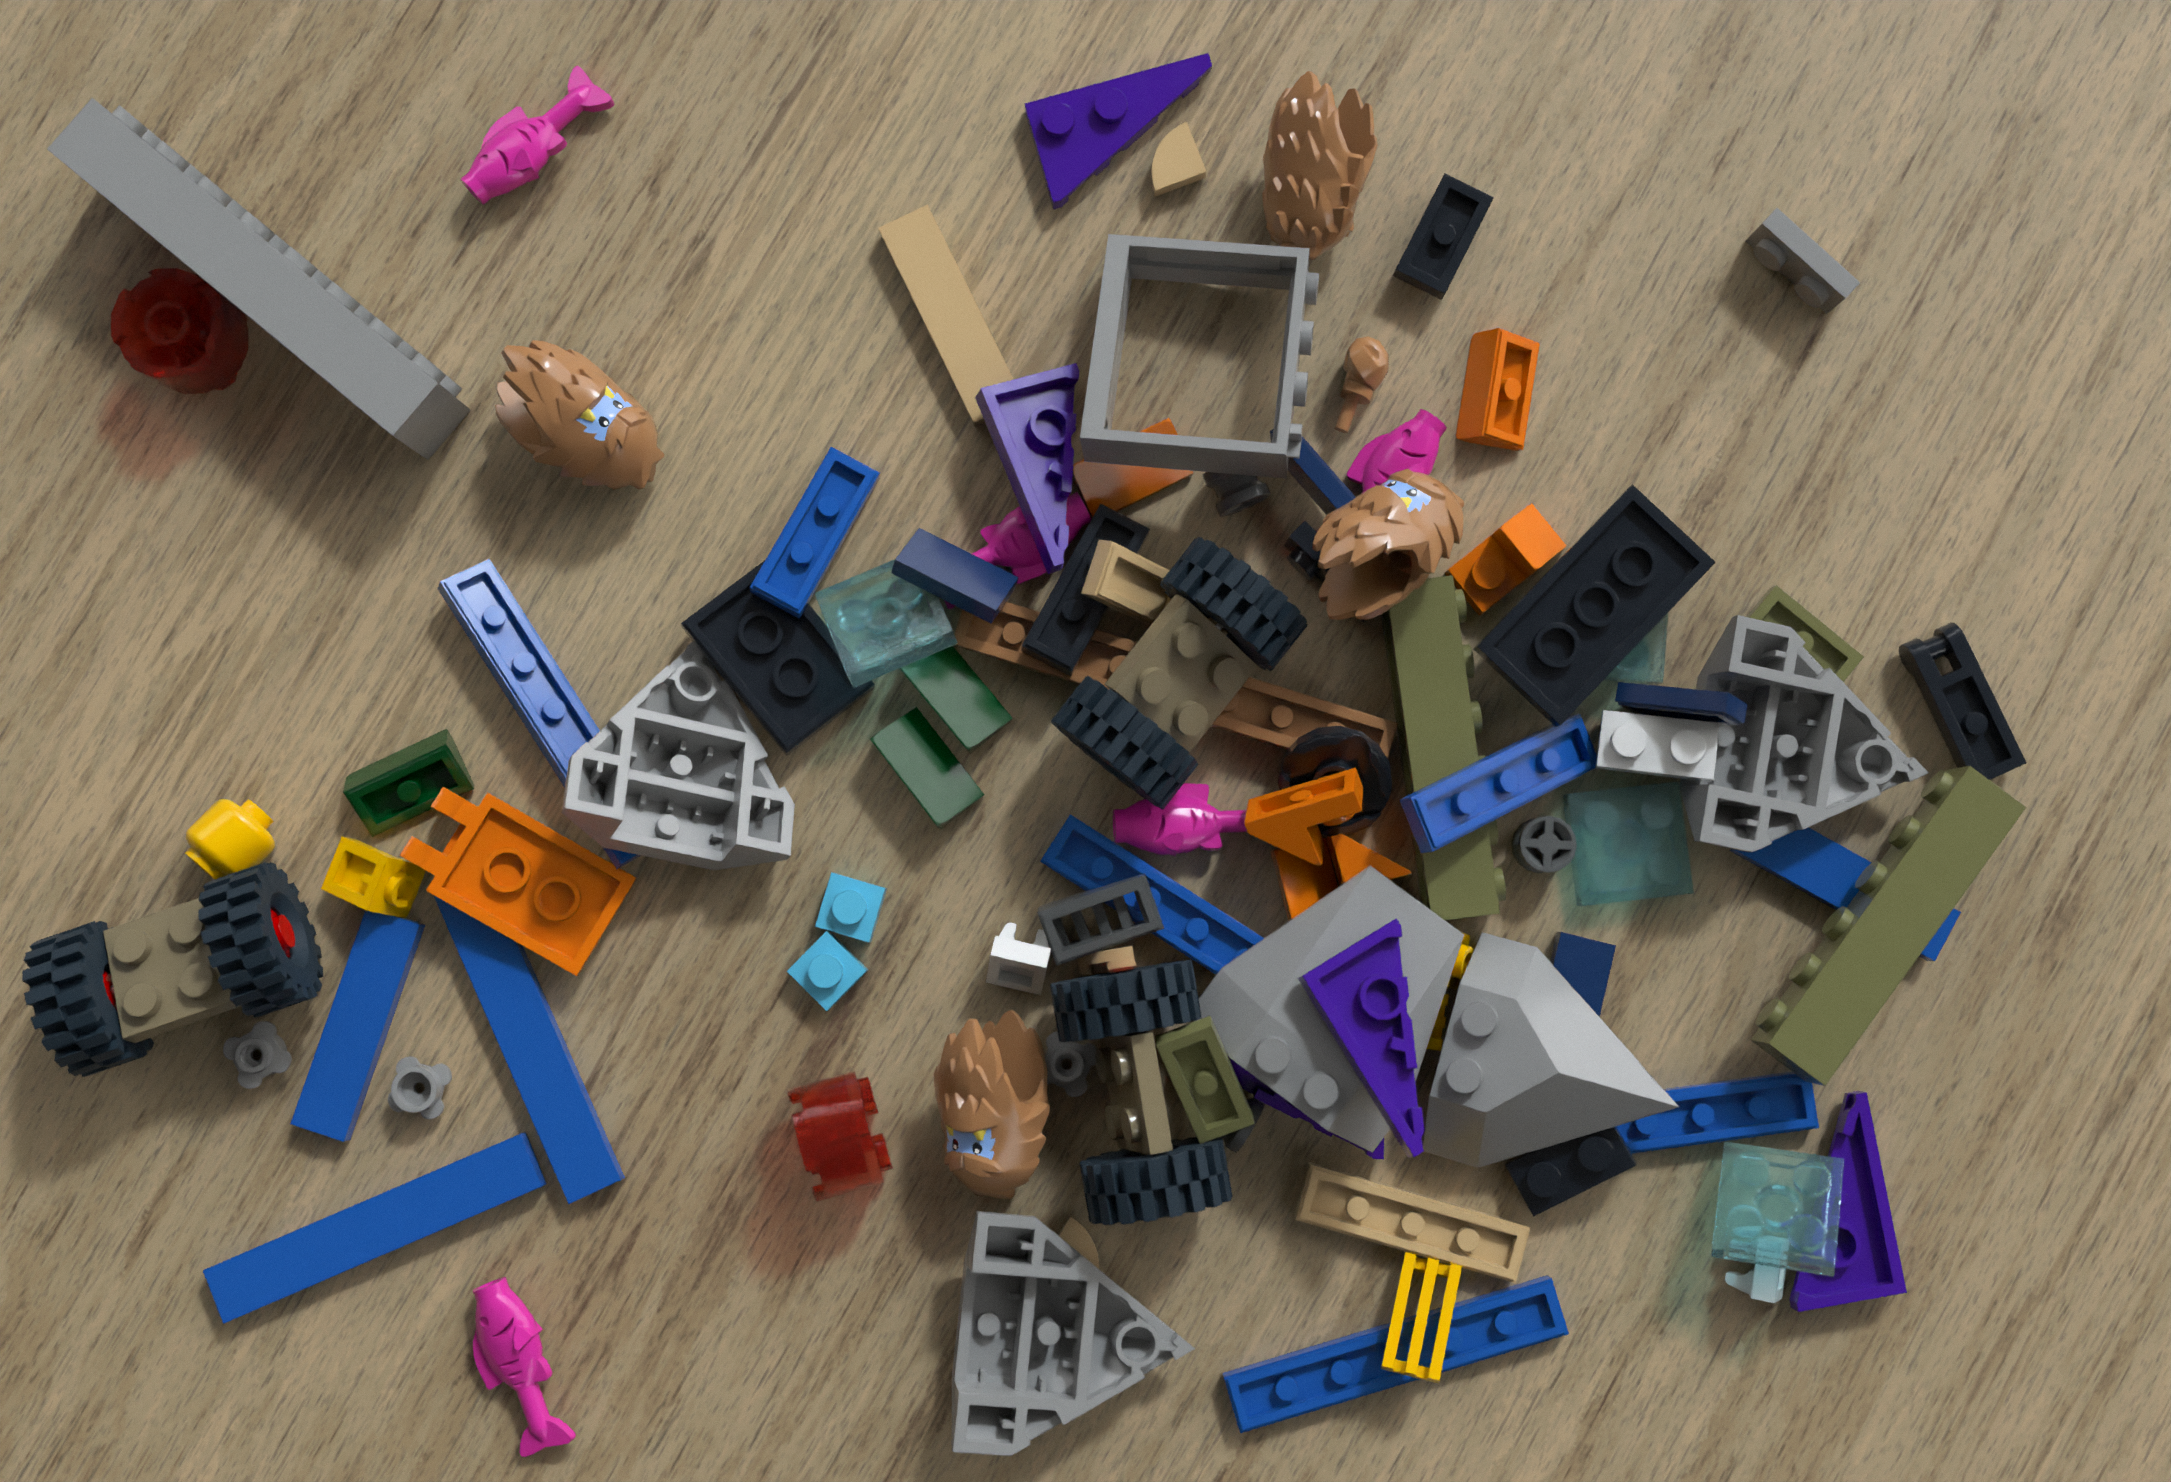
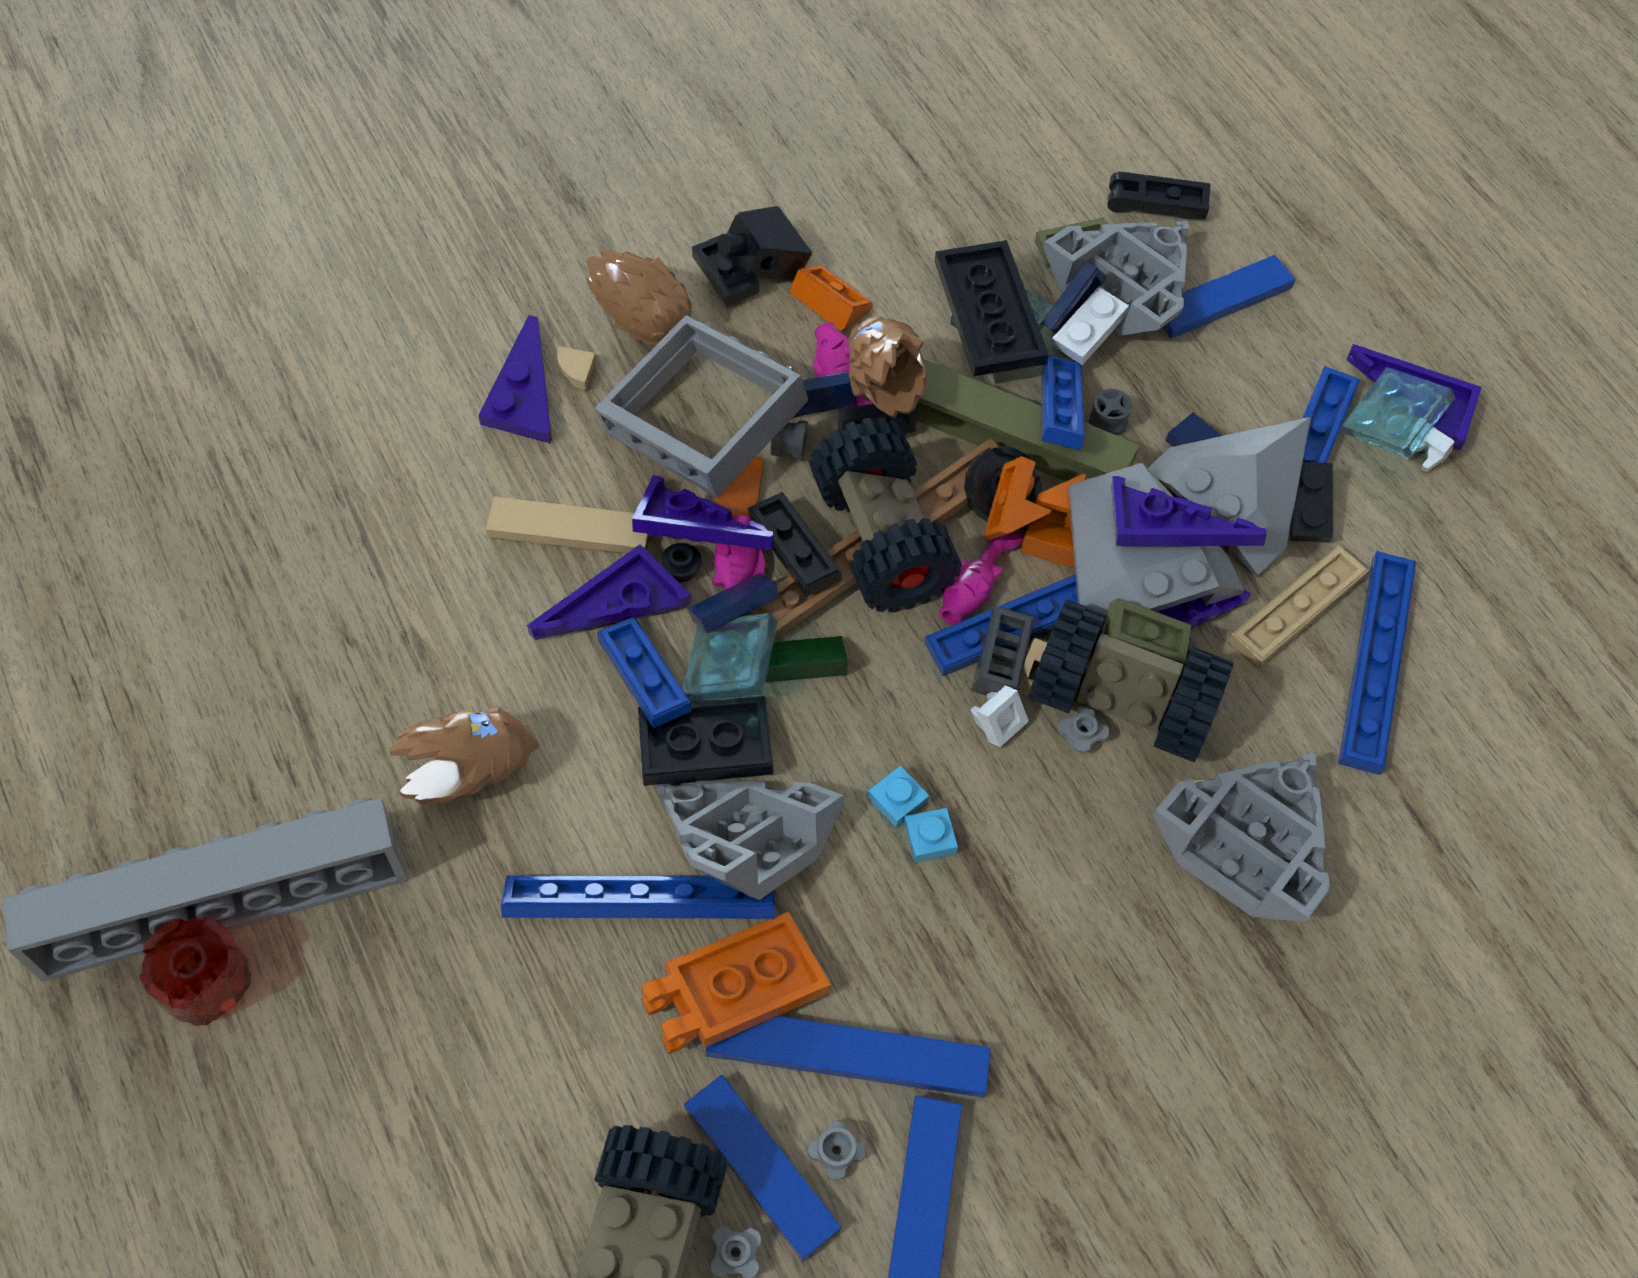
camera: 60 degrees left, 25 degrees down
(230, 838) = (568, 1168): yellow head -> none
(372, 878) = (664, 1085): yellow bracket -> none
(407, 782) = (614, 1026): dark green slope -> none
(510, 1352) = (1068, 1203): dark pink animal -> none
(521, 146) = (261, 696): dark pink animal -> none
(838, 1135) = (1049, 875): clear red brick -> none
(902, 438) = (625, 589): none -> dark purple wing
(927, 767) = (839, 701): slope -> none
(977, 489) = (684, 570): none -> black plate
(993, 1104) = (1090, 777): medium nougat head -> none
(1126, 582) = (811, 515): tan tile -> none
(1365, 369) = (770, 340): medium nougat piece -> none
(1431, 1269) = (1374, 614): yellow tile -> none
(1505, 261) = (765, 244): none -> black torso
(1505, 559) = (934, 332): orange slope -> none
(1628, 844) = (1140, 373): clear light blue plate -> none
(1788, 249) = (867, 131): light grey plate -> none
(1886, 923) = (1264, 283): olive brick -> none

